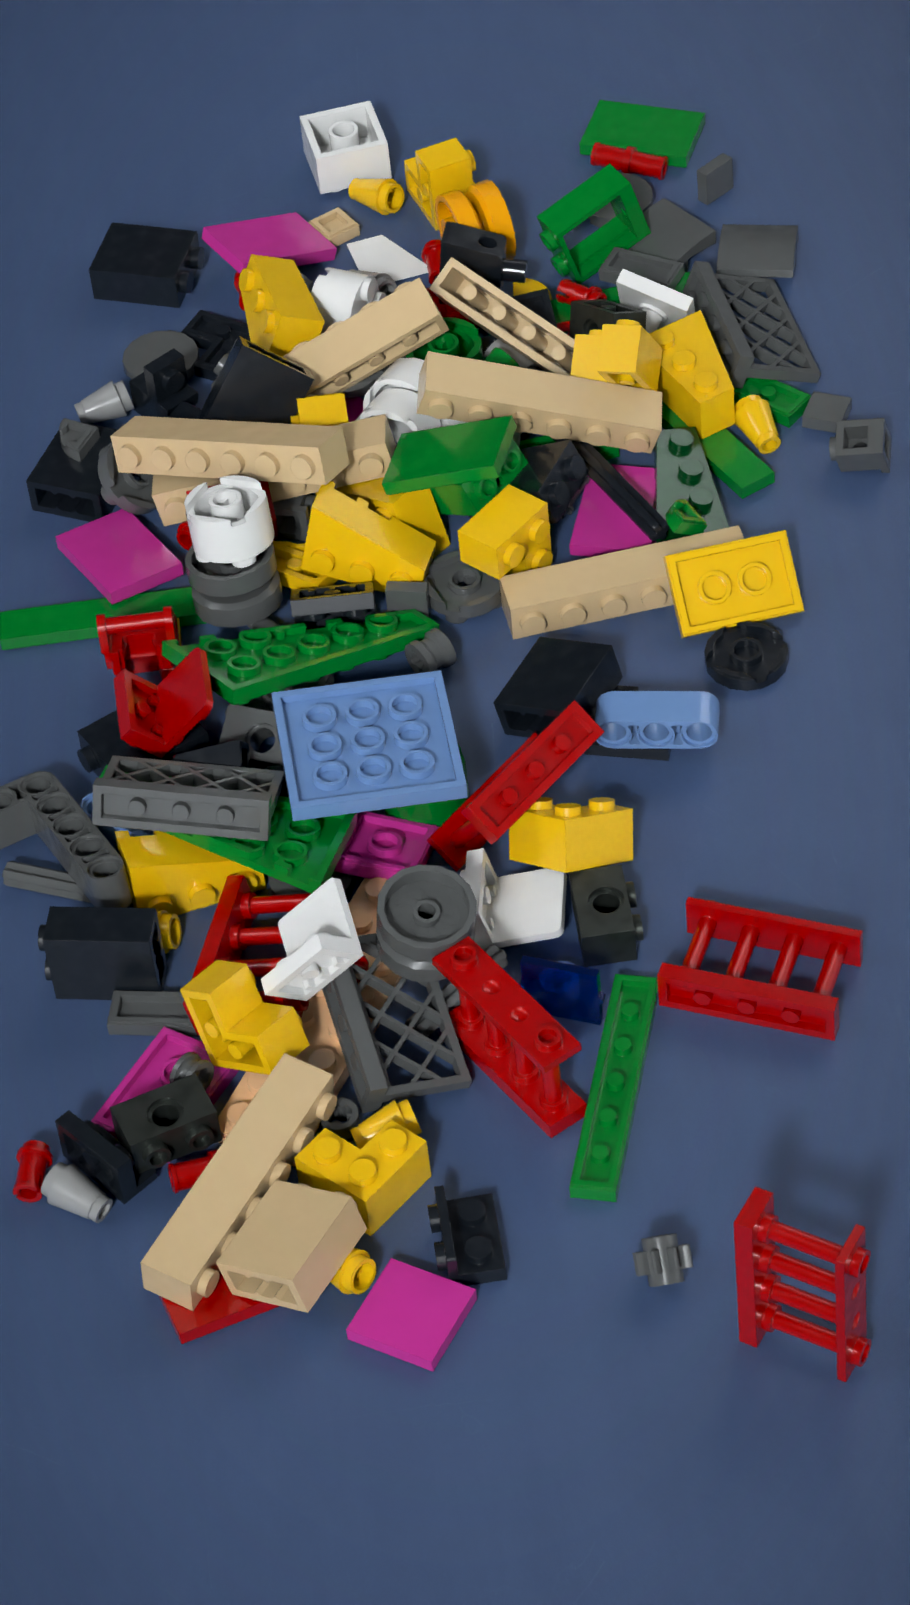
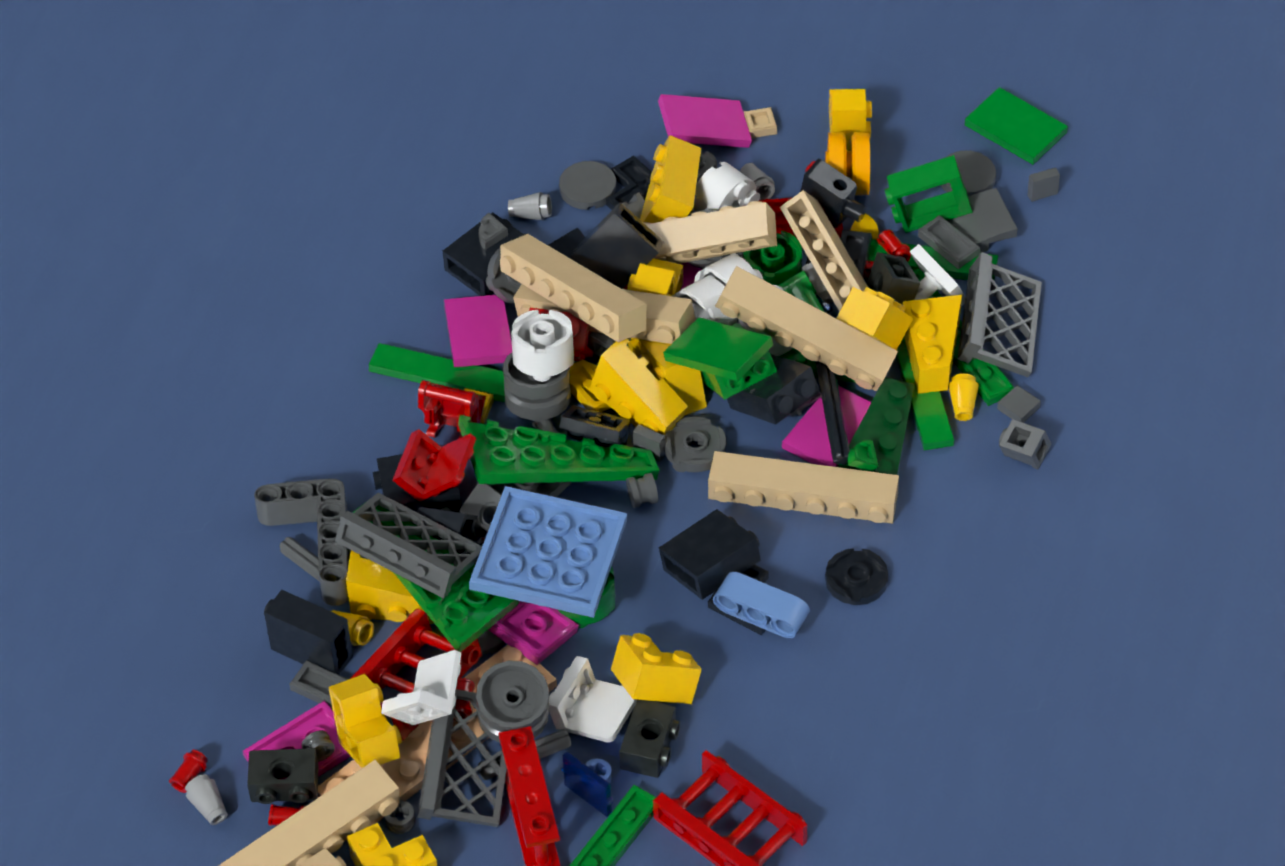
camera: 20 degrees right, 5 degrees up
(101, 1157) = (234, 777): black bracket -> none
(146, 265) = (614, 105): black brick -> none
(162, 386) = (570, 212): black brick -> none
(345, 146) = (797, 62): white brick -> none
(378, 194) = (804, 109): yellow cone -> none
(384, 256) = (781, 161): white sticker -> none
(398, 1112) = (435, 833): yellow cone -> none
(507, 535) = (735, 423): yellow brick -> none
(515, 785) = (635, 619): red fence -> none
(629, 160) = (992, 146): red pin -> none
(733, 583) = (872, 519): yellow tile -> none
(757, 250) = (1042, 254): dark grey slope -> none

